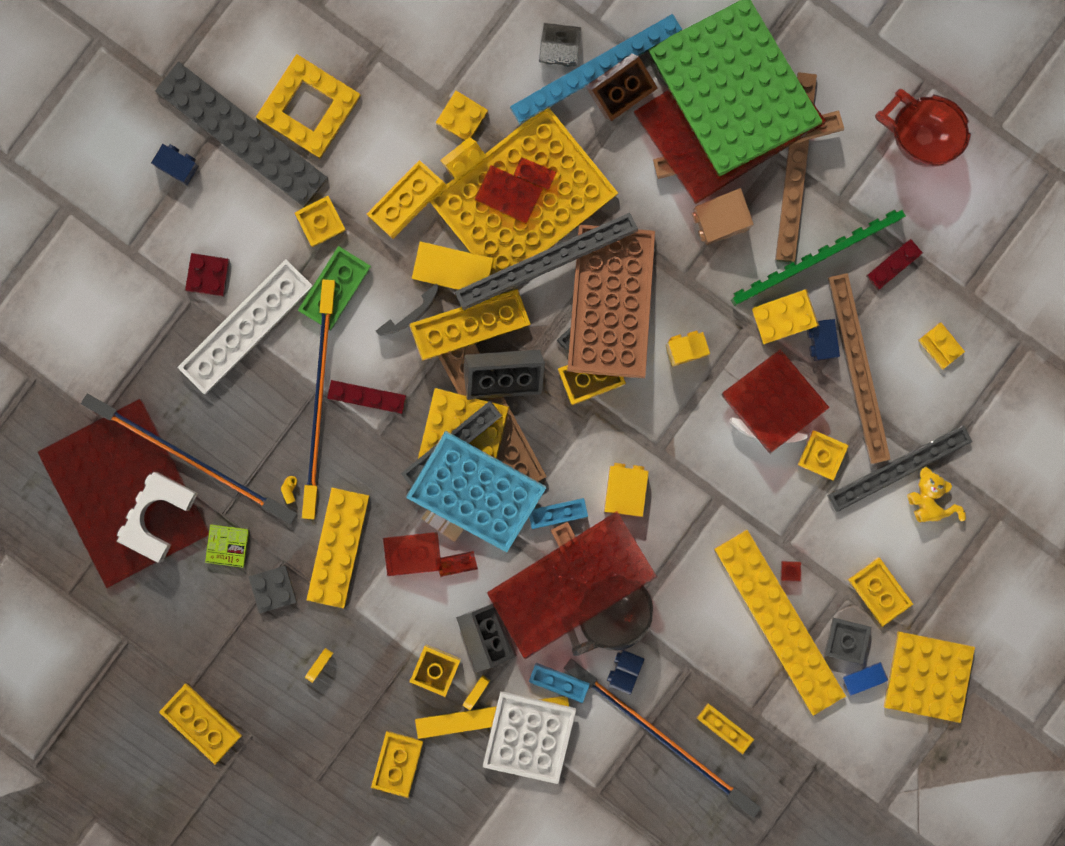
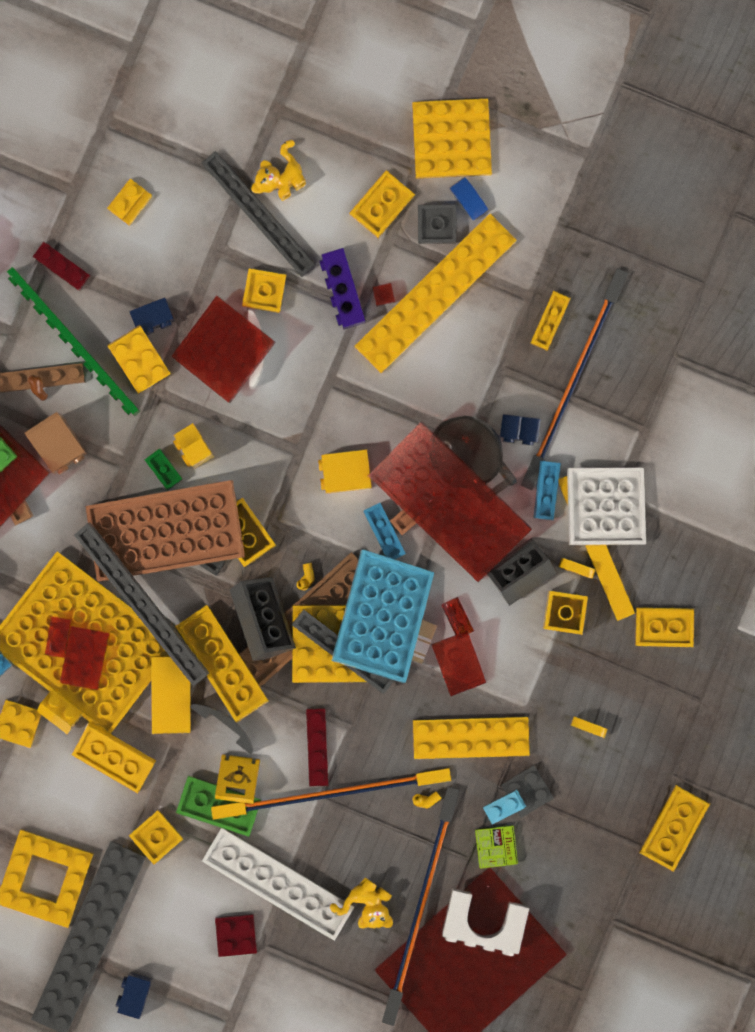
camera: 105 degrees left, 0 degrees up
(193, 412) = (374, 913): none -> yellow animal
(263, 563) = (504, 806): none -> medium azure plate
(359, 315) = (237, 774): none -> yellow container
(531, 428) = (307, 579): none -> yellow arm
(672, 314) = (163, 469): none -> green plate
(781, 212) = (37, 387): none -> dark orange arm
(836, 535) = (338, 259): none -> dark purple brick
(859, 368) = (171, 276): medium nougat plate -> none

